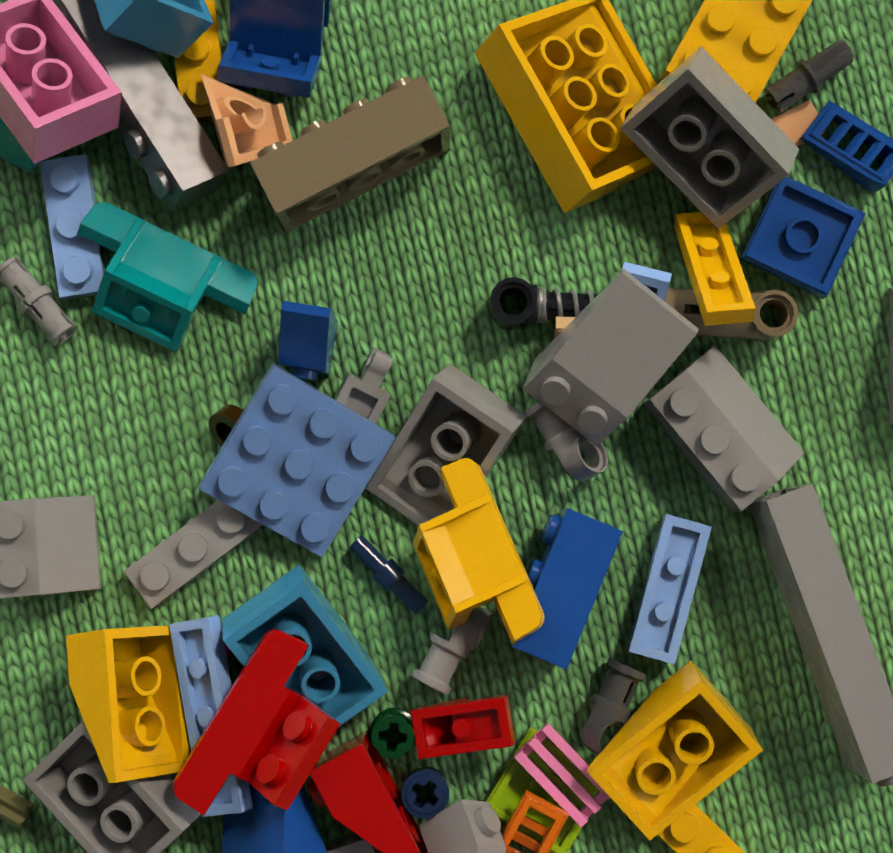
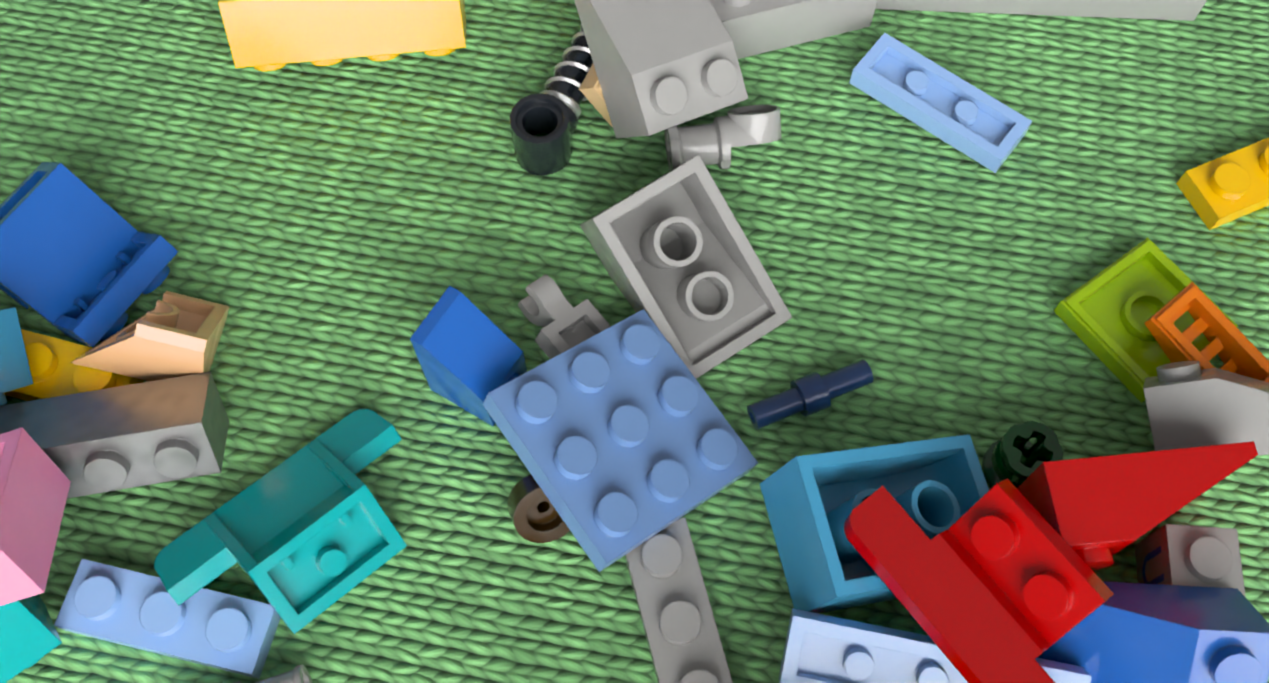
camera: 70 degrees left, 20 degrees down
(353, 152) = (270, 222): dark tan brick -> none
(429, 806) = (1108, 429): dark blue bush -> none
(446, 654) = (934, 357): light grey connector -> none
(463, 726) = (1043, 360): red slope -> none
(474, 558) = (837, 256): yellow plate -> none
(567, 582) = (904, 185): blue brick -> none
(593, 804) = (1172, 260): bright pink tile -> none
(611, 703) = (1051, 199): dark grey connector -> none
(673, 751) = (1138, 142): yellow slope -> none

